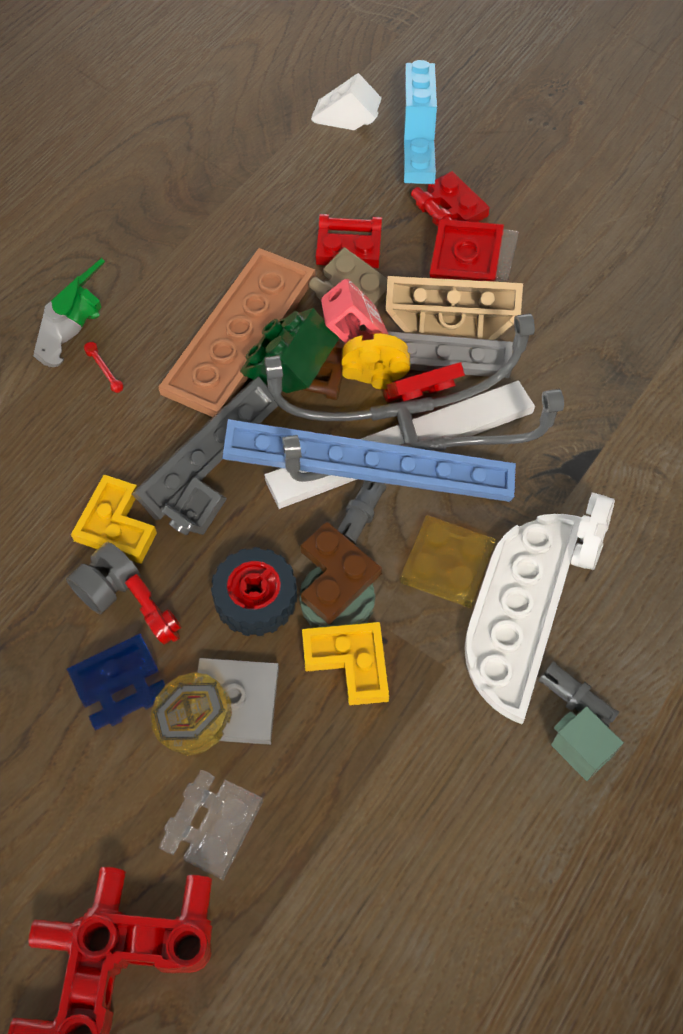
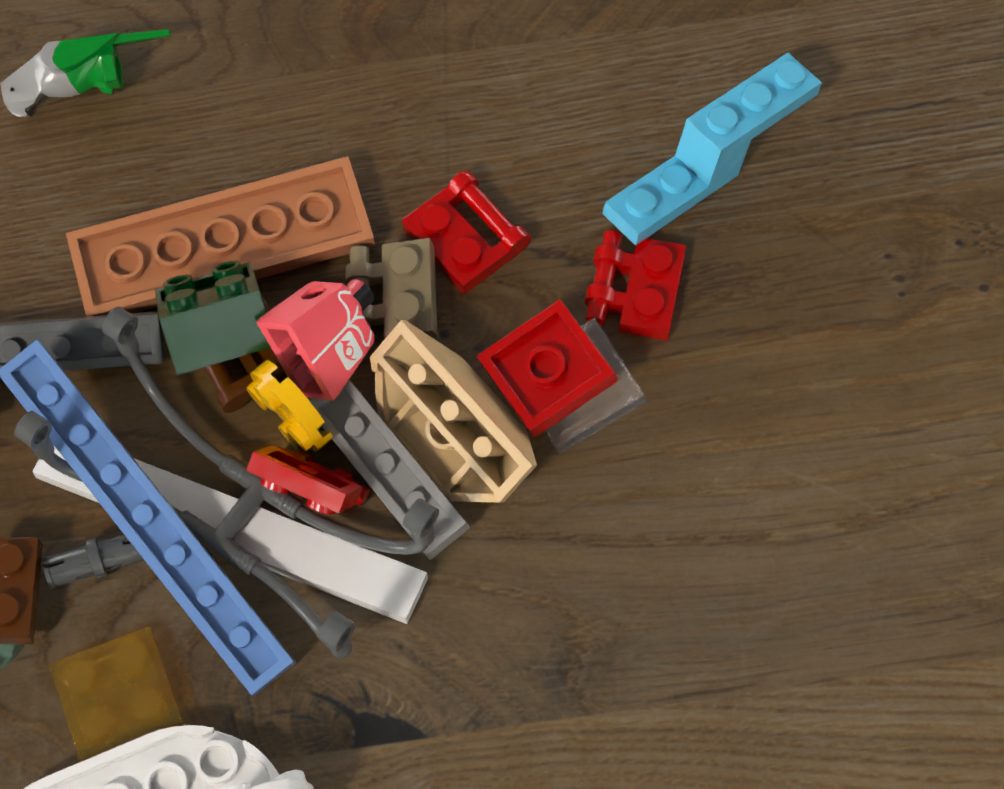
camera: 50 degrees right, 5 degrees up
(92, 350) = (68, 127): red hinge -> none
(348, 105) = (670, 52): white slope -> none

